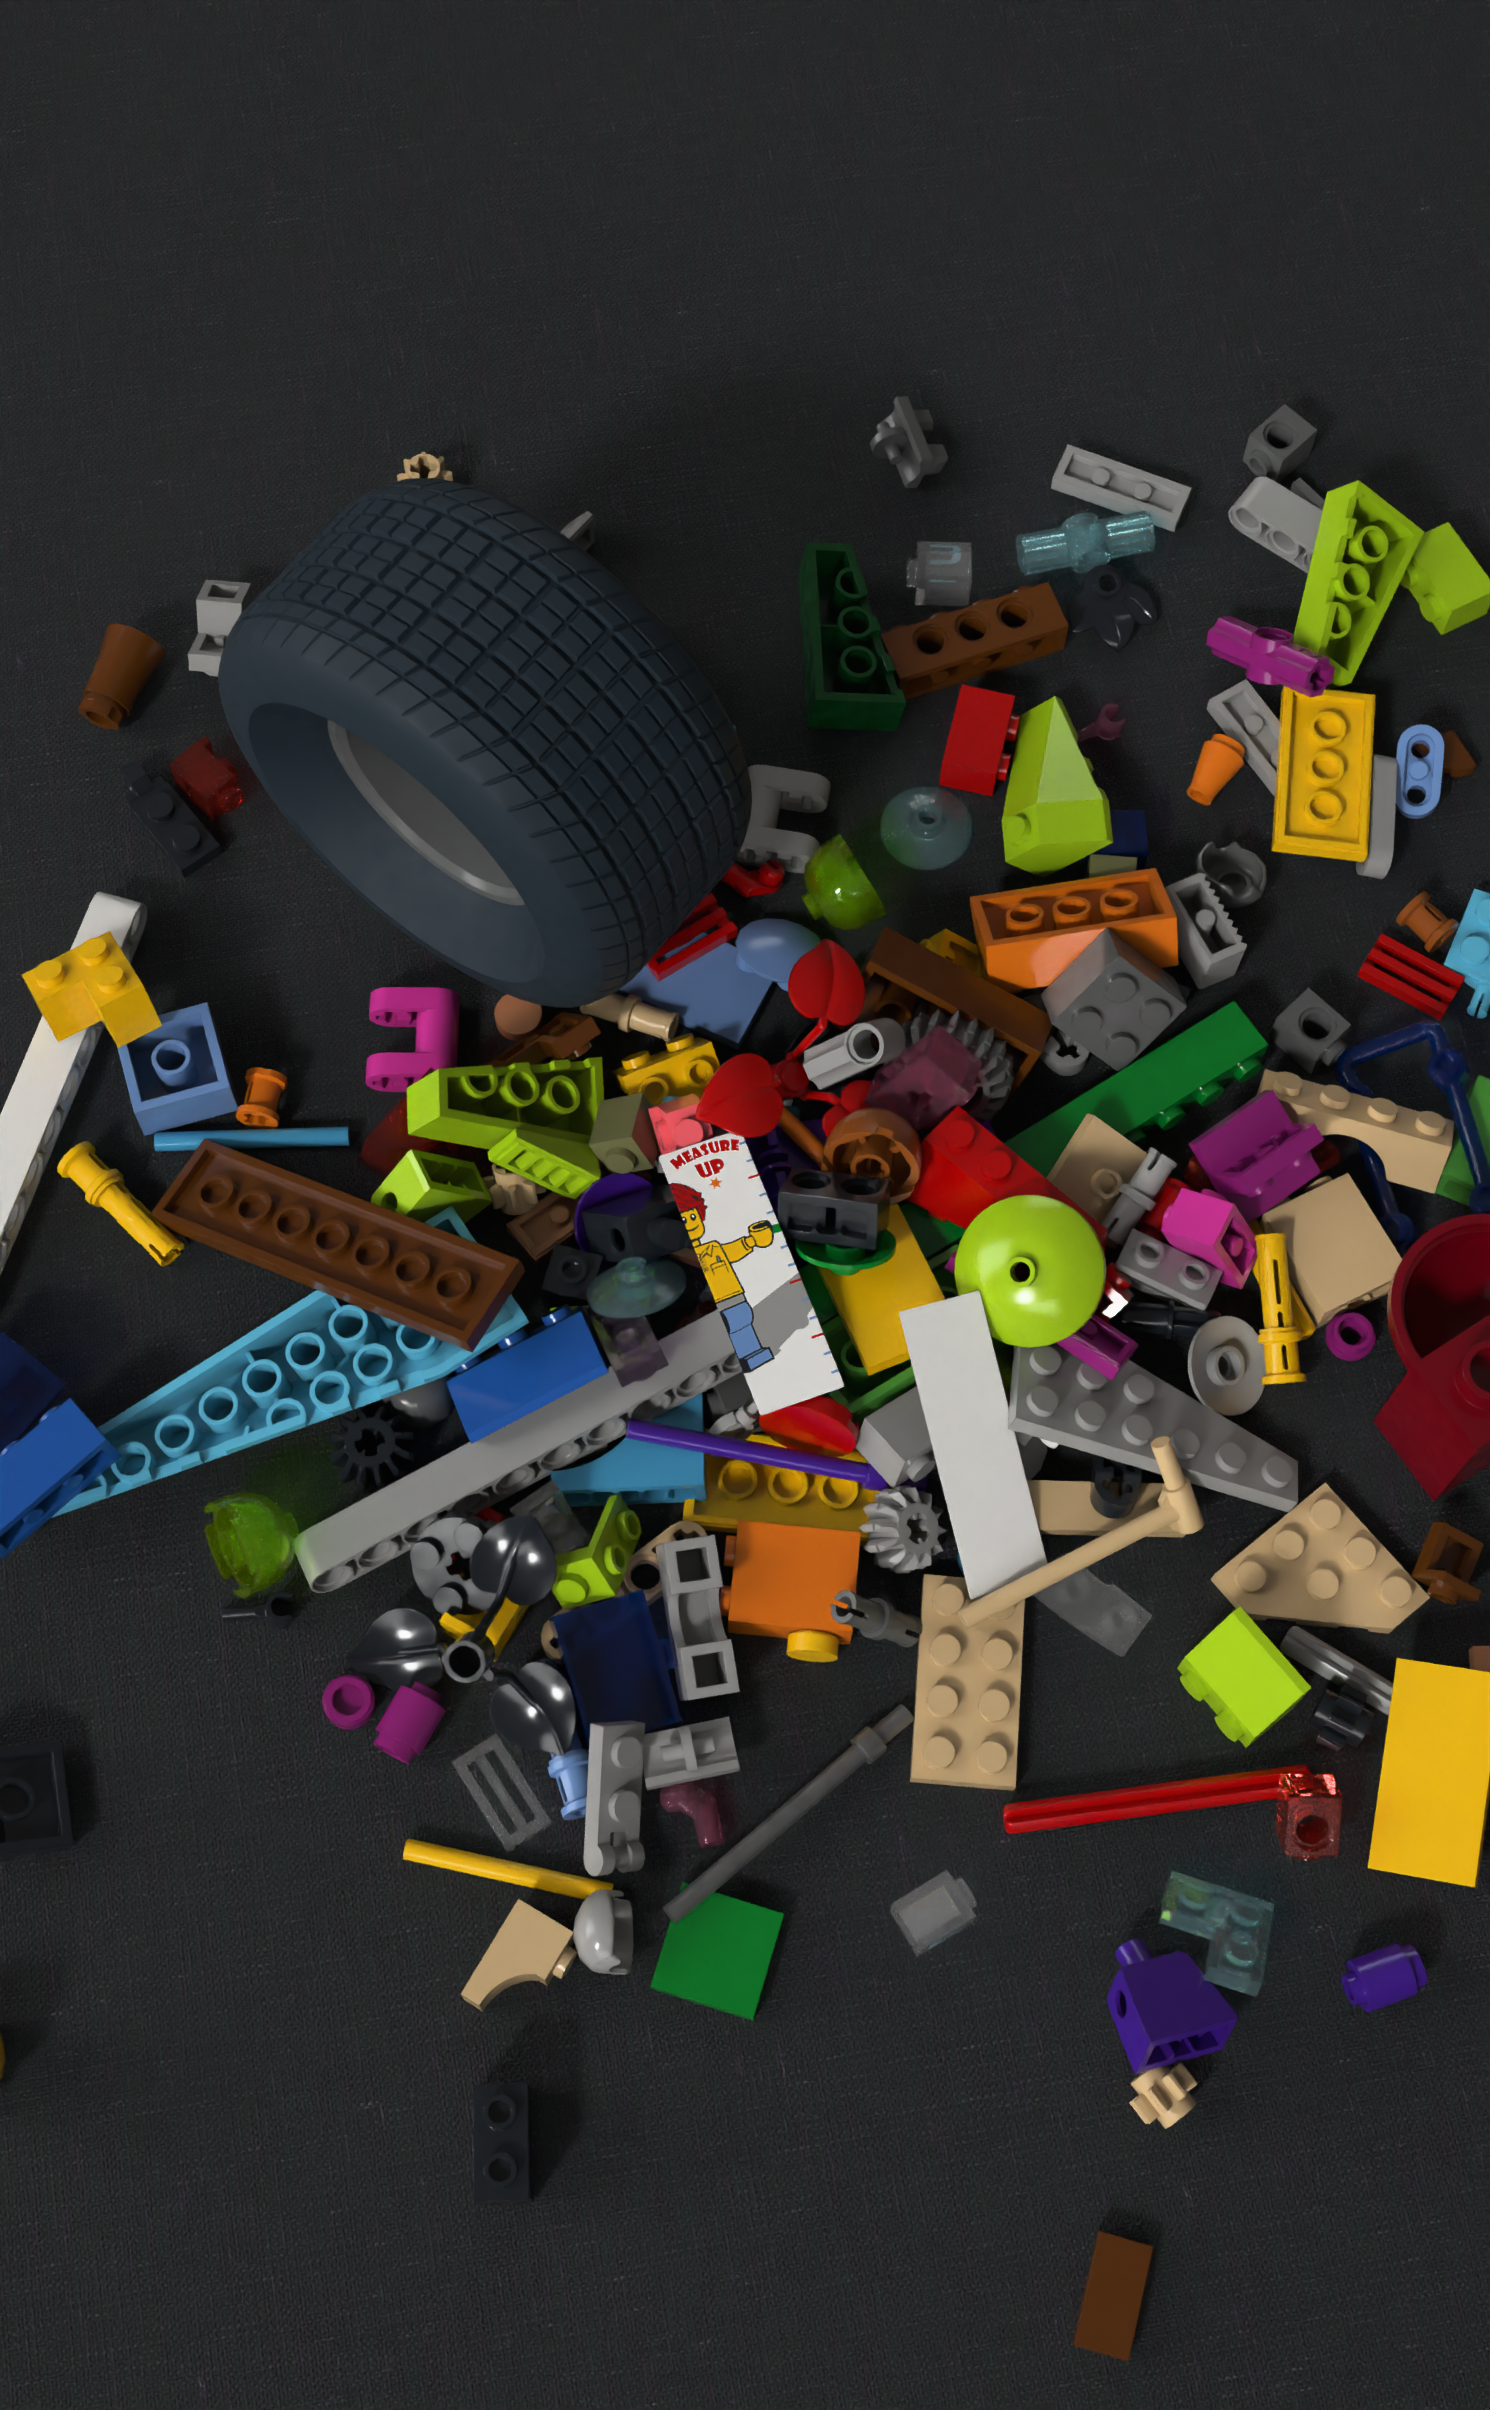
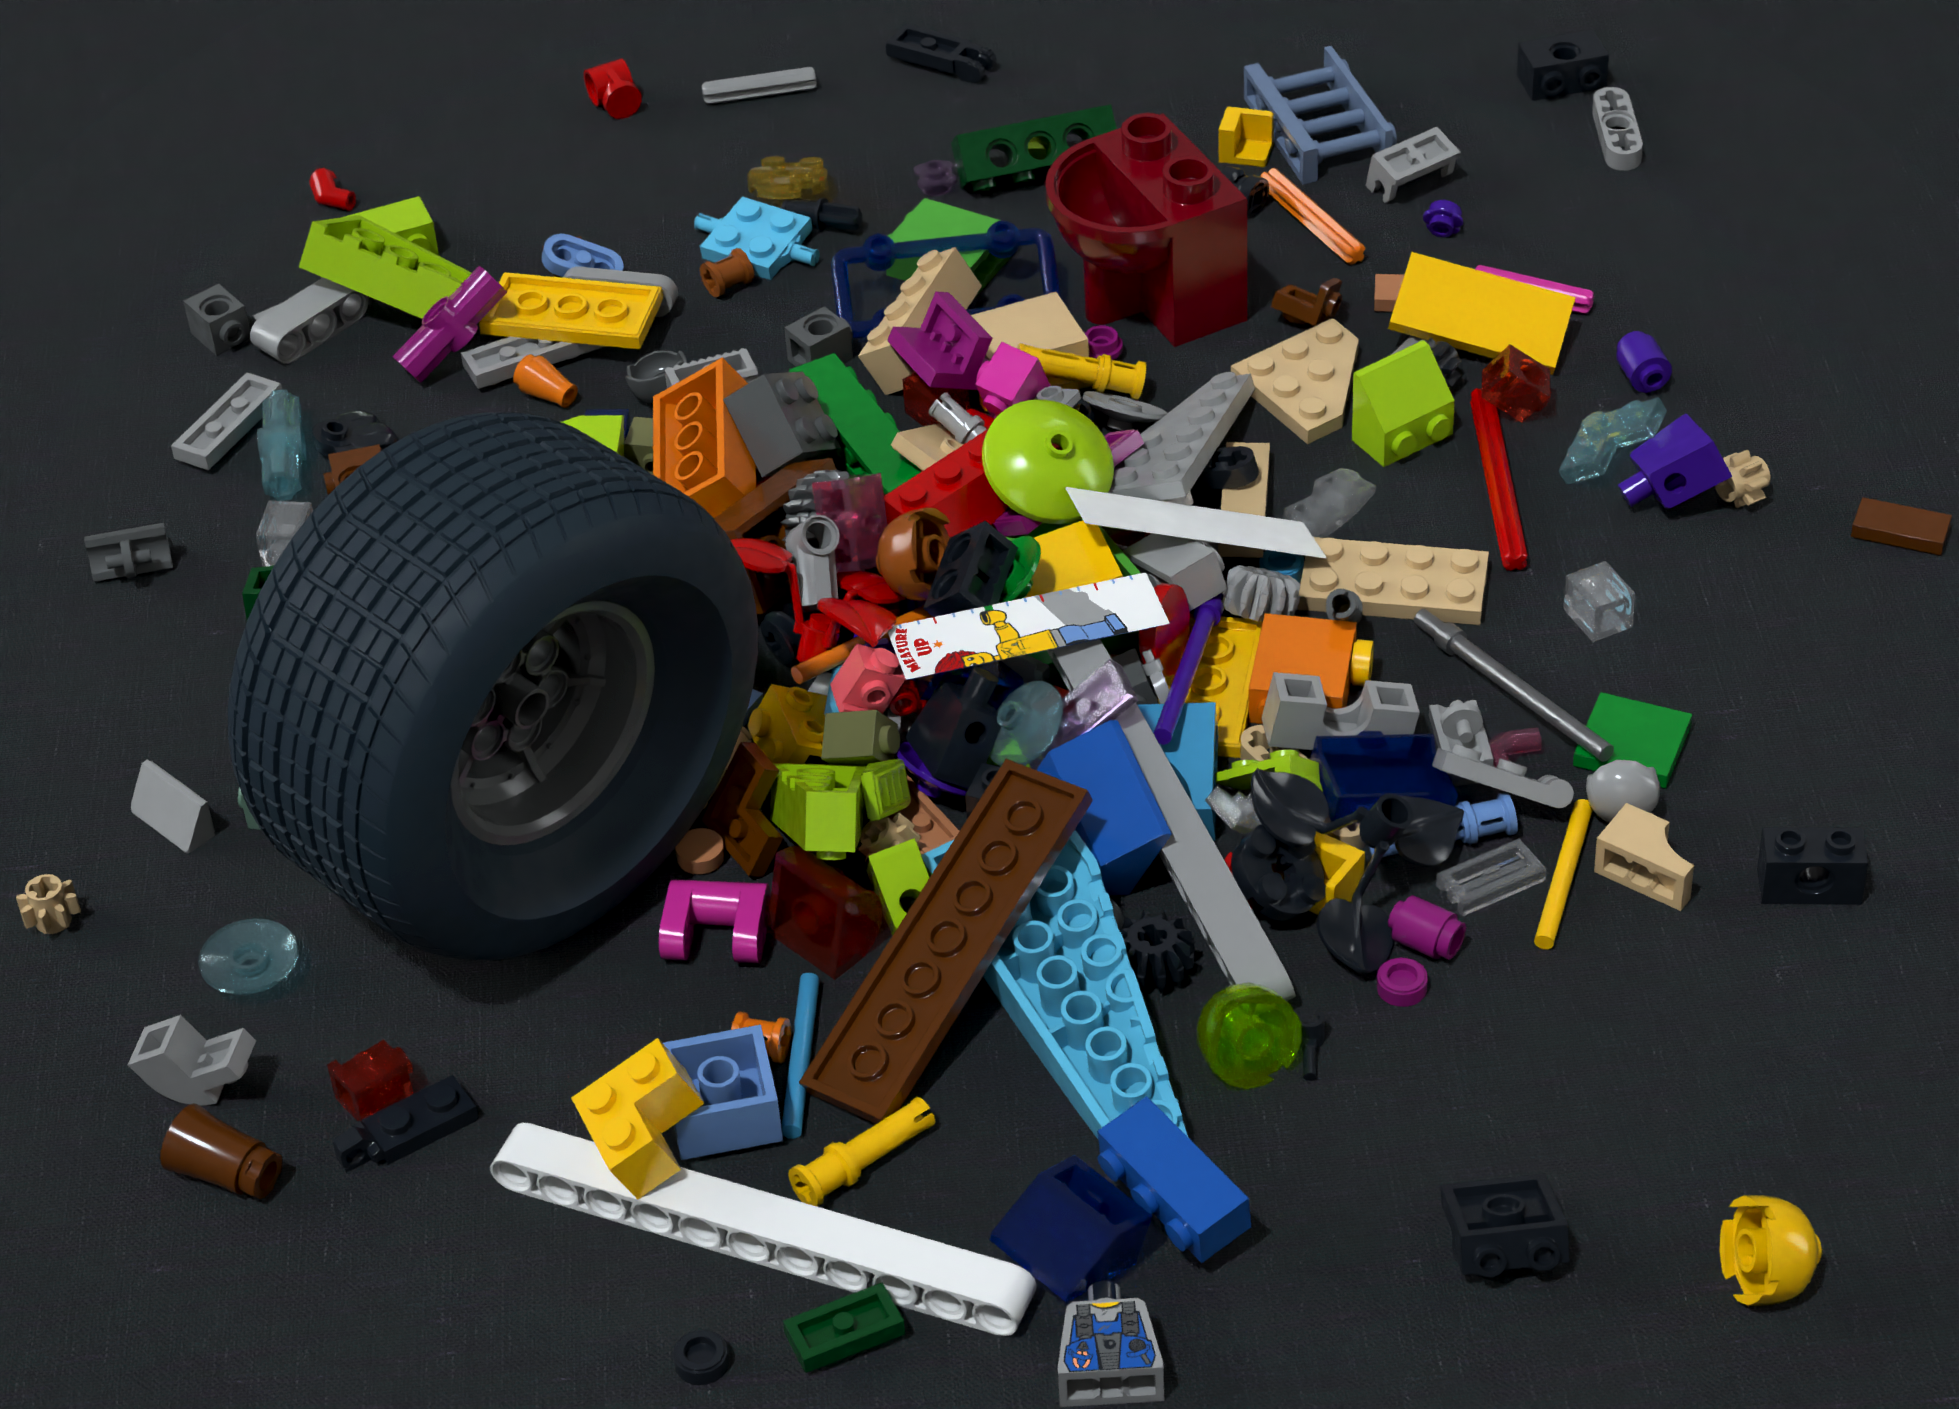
camera: 80 degrees left, 25 degrees down
(1176, 1510) = (1261, 436): tan bar -> none
(1414, 970) = (768, 288): red tile -> none

